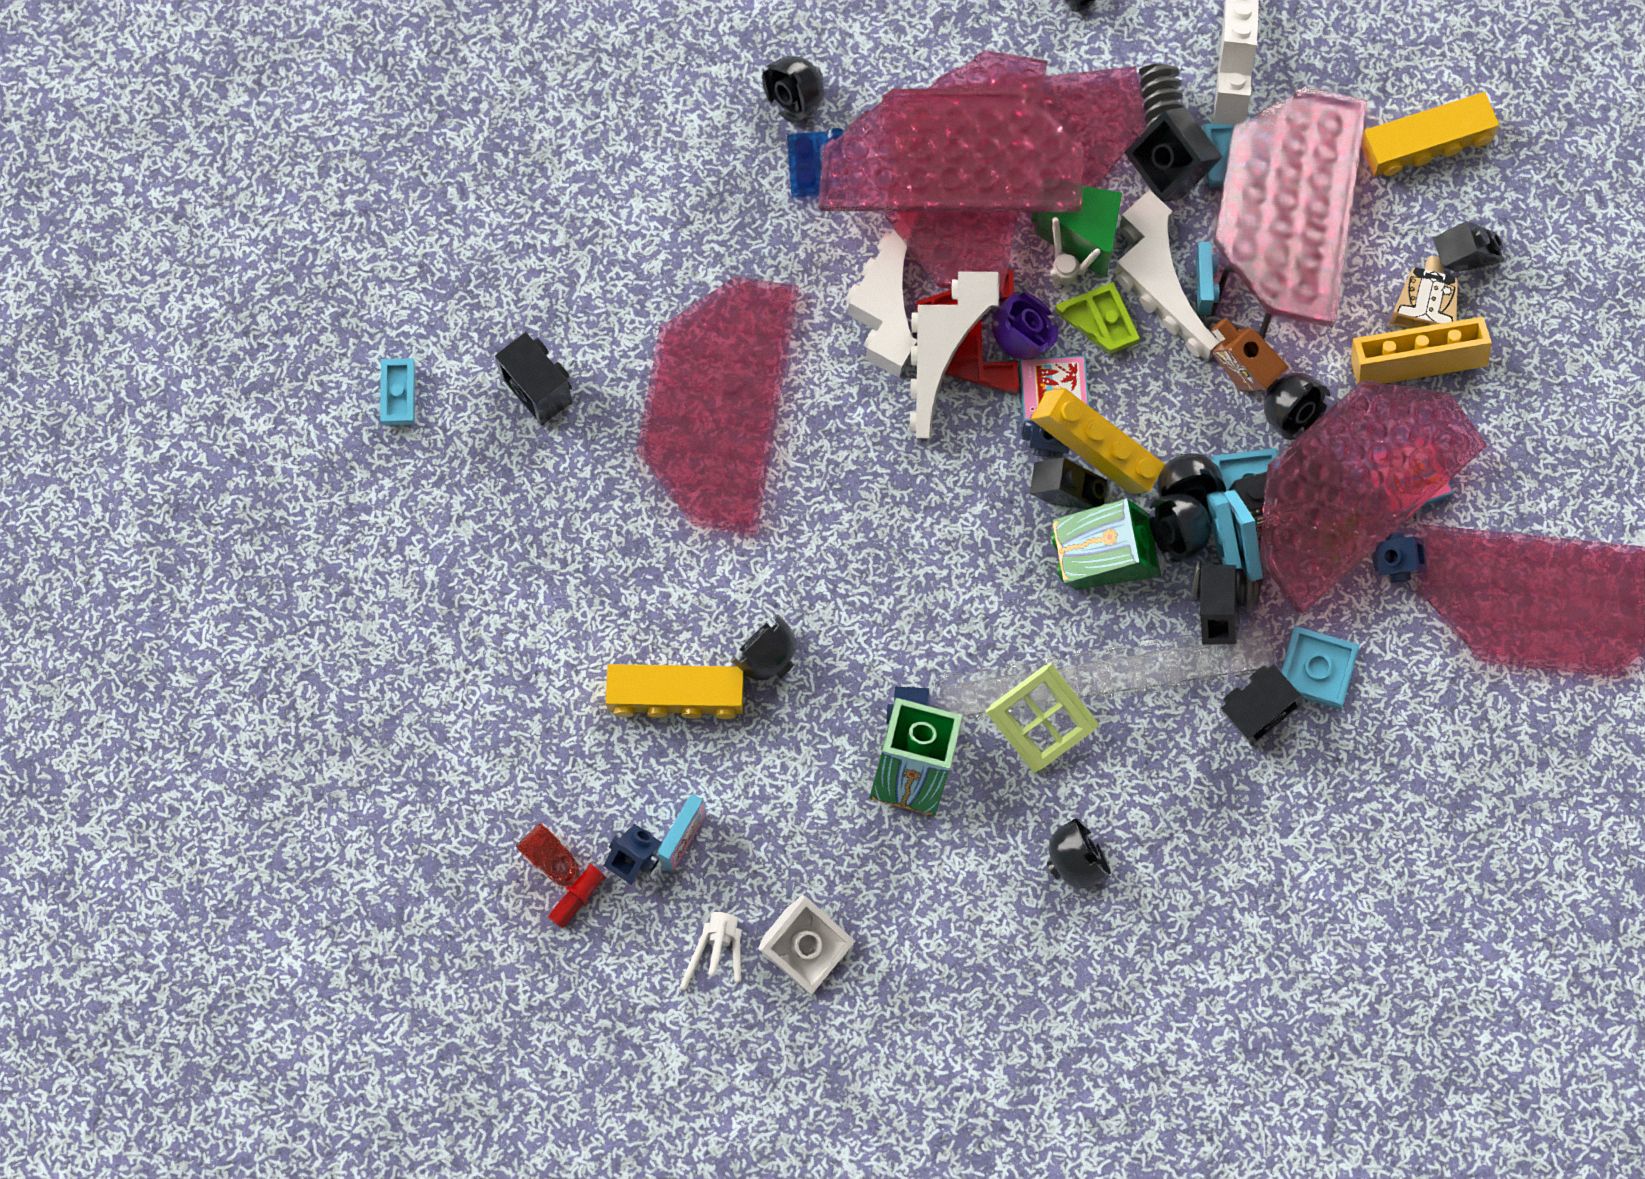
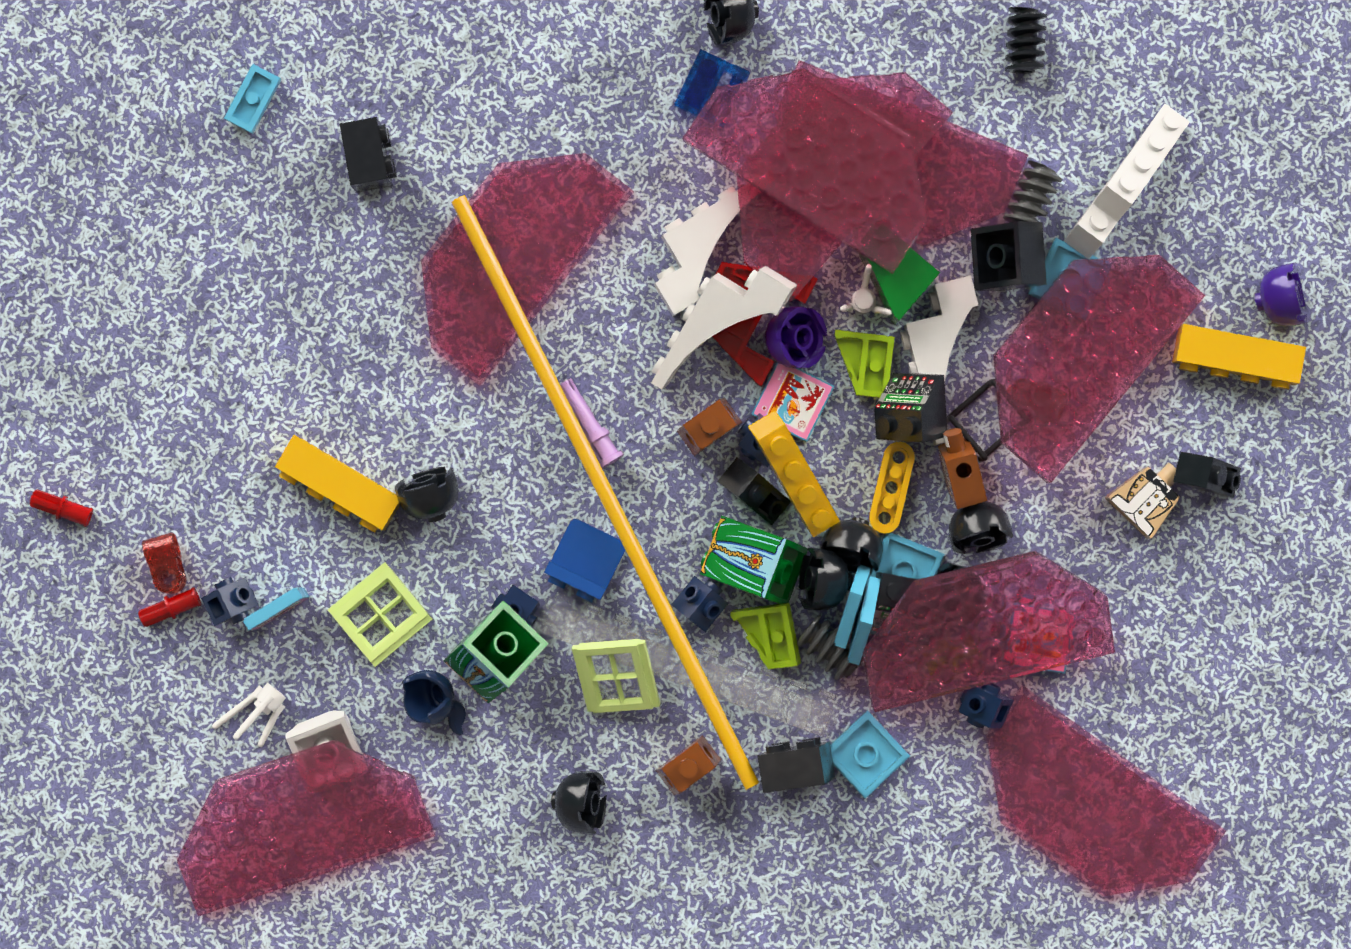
camera: 30 degrees right, 15 degrees up
(418, 860) = (61, 507): none -> red axle
(783, 791) = (380, 614): none -> yellowish green piece
(817, 1030) = (297, 823): none -> clear pink plate
(878, 840) = (431, 699): none -> dark blue hair
(891, 517) = (596, 435): none -> lavender pin
(938, 559) = (605, 492): none -> yellow piece
(949, 633) = (585, 560): none -> blue bracket
(993, 447) = (709, 426): none -> dark orange torso
(1080, 611) = (700, 603): none -> dark blue brick
(1158, 768) = (688, 765): none -> dark orange torso
(1161, 604) = (770, 632): none -> lime wing
(1169, 328) = (912, 408): none -> black slope
(1191, 402) = (896, 473): none -> yellow plate
(1205, 268) = (980, 366): medium azure plate -> none
(1219, 604) = (809, 669): black slope -> none
(1421, 351) = (1110, 542): yellow brick -> none
(1435, 63) = (1282, 296): none -> dark purple cylinder

